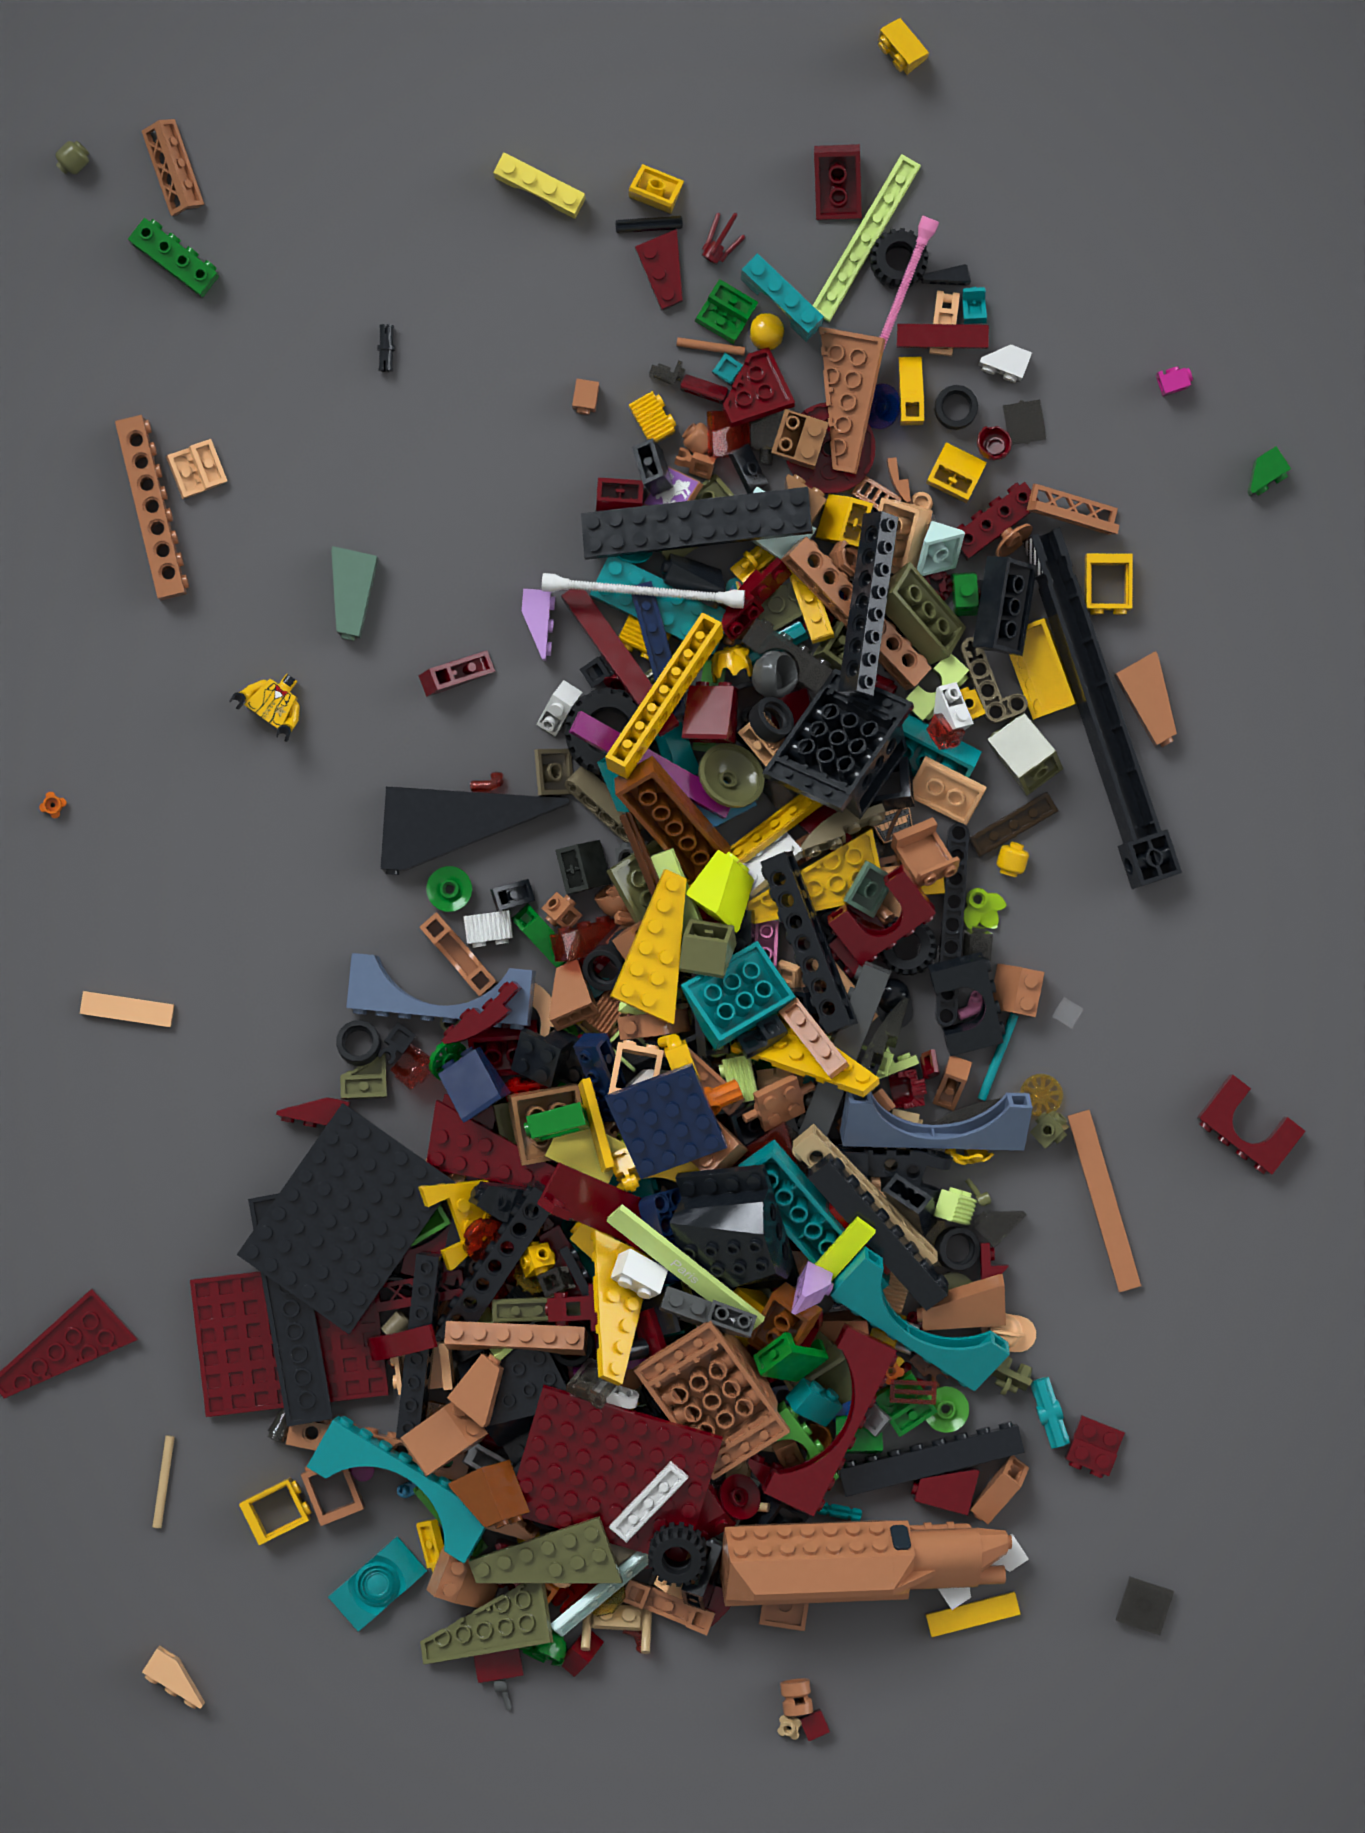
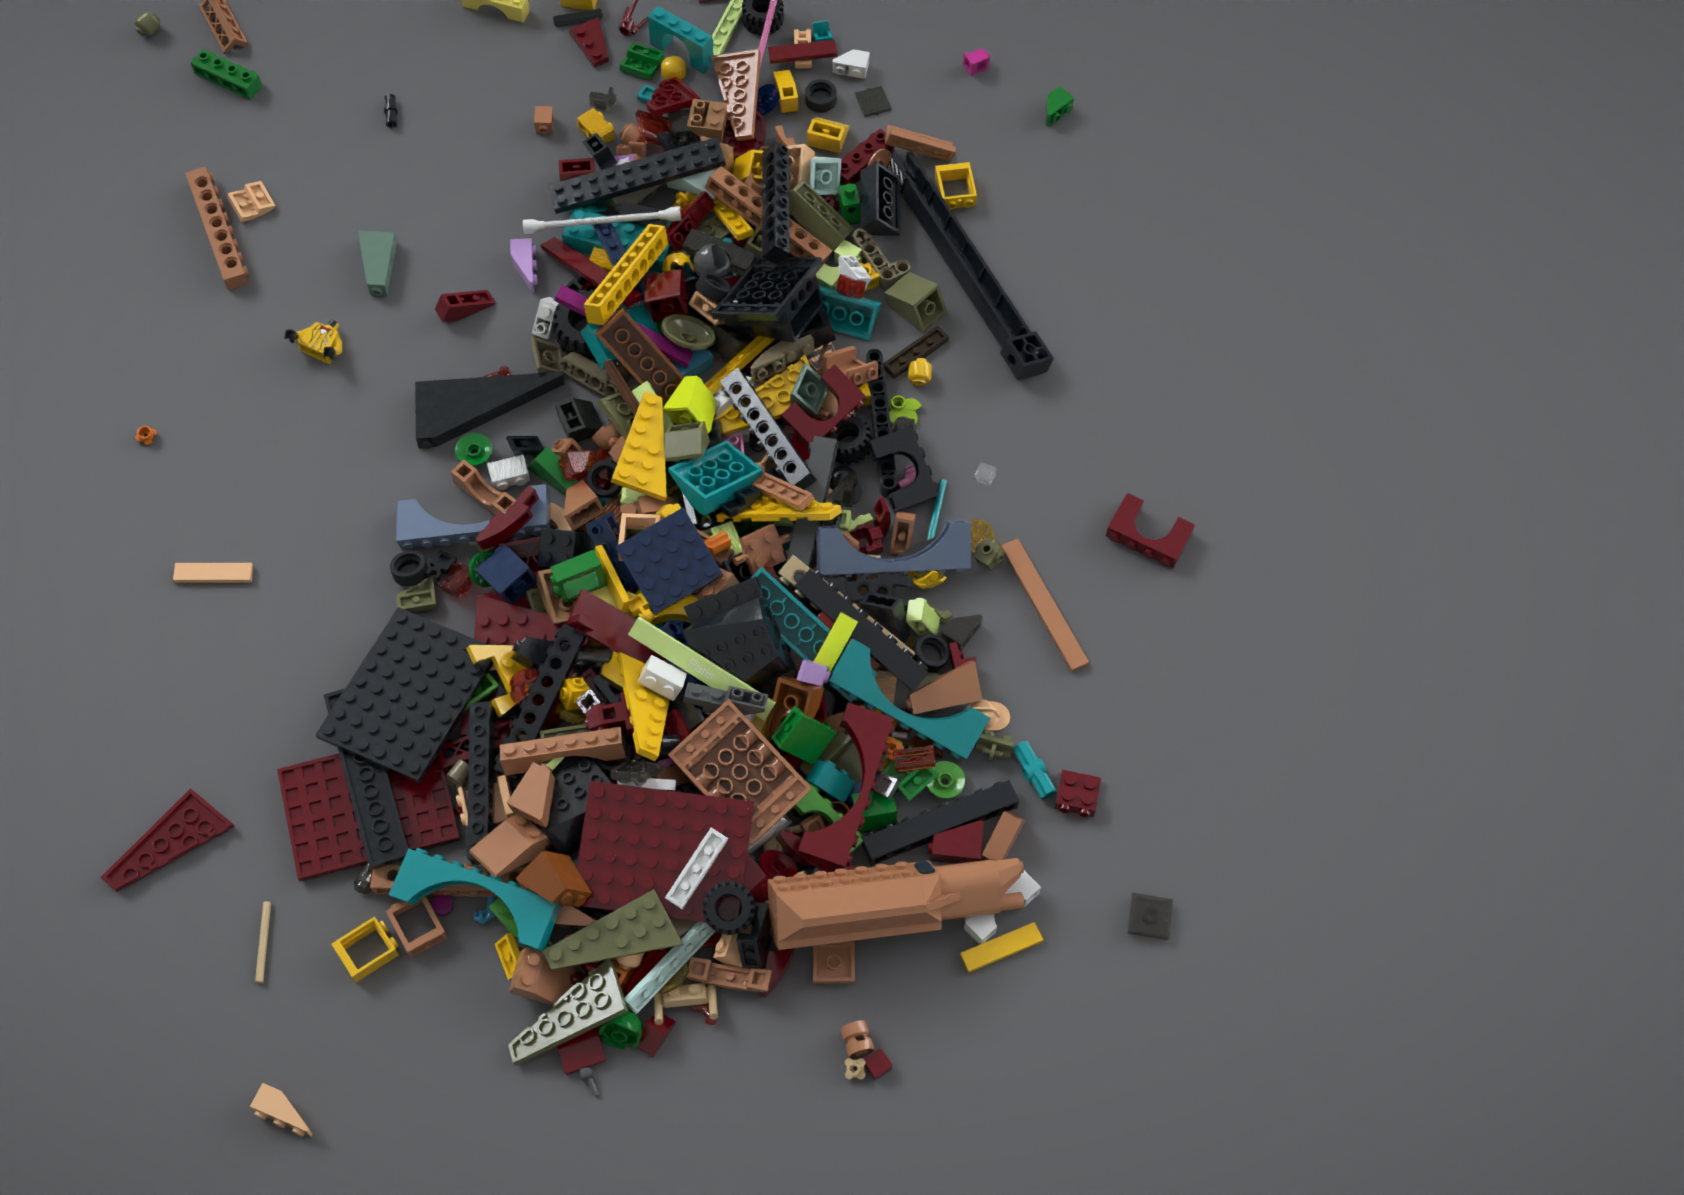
camera: 10 degrees left, 25 degrees down
(312, 1112) = (369, 625): dark red slope -> none
(377, 1583) = (463, 1001): teal slope -> none
(402, 1343) = (462, 775): dark red slope -> none
(703, 389) = (628, 108): dark red slope -> none
(710, 346) = (632, 83): nougat bar -> none
(947, 790) = (859, 330): light nougat tile -> none
(951, 276) = (799, 20): black slope -> none
(994, 443) = (853, 112): dark red hair -> none
(1018, 989) = (944, 459): nougat slope -> none
(1042, 672) = (918, 248): yellow slope -> none
(1148, 697) = (1001, 254): nougat slope -> none

